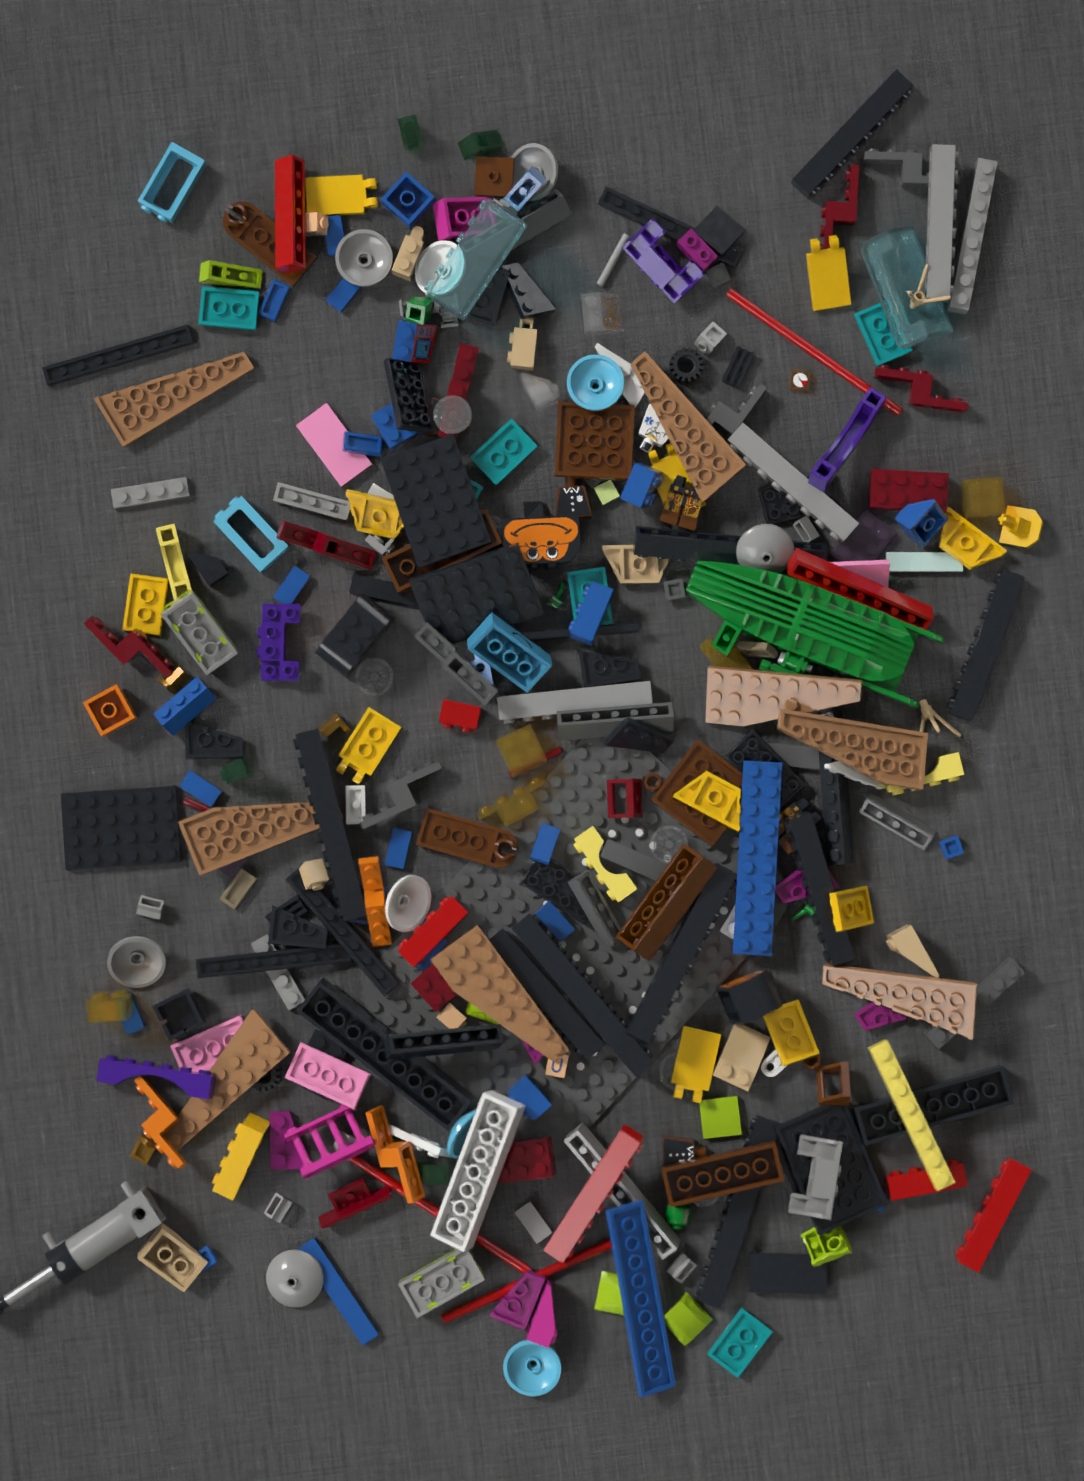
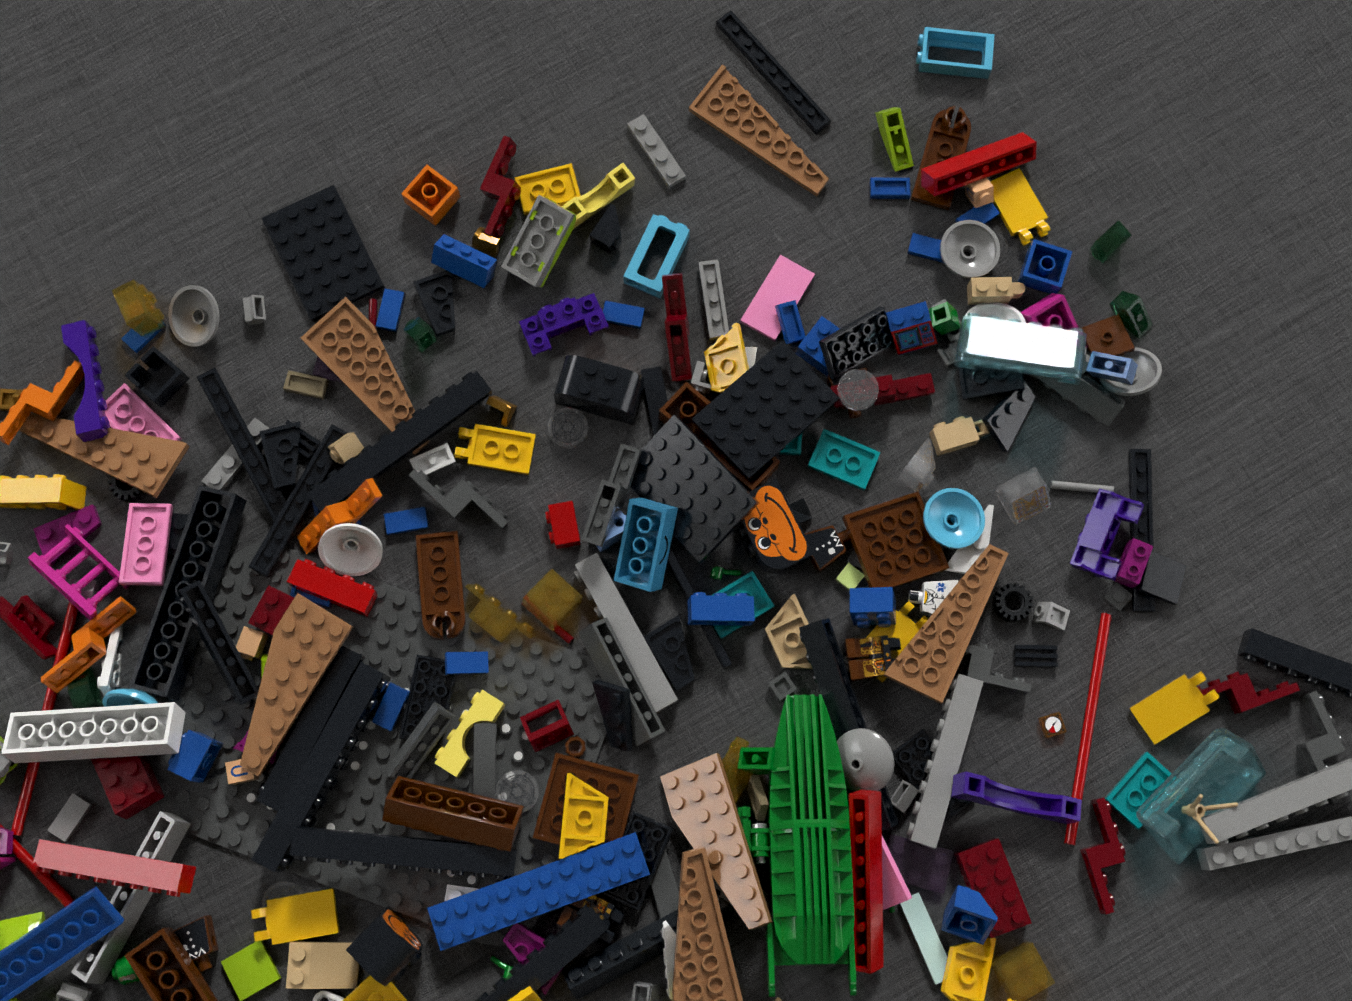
camera: 70 degrees right, 10 degrees down
(228, 308) = (863, 149): teal plate -> none

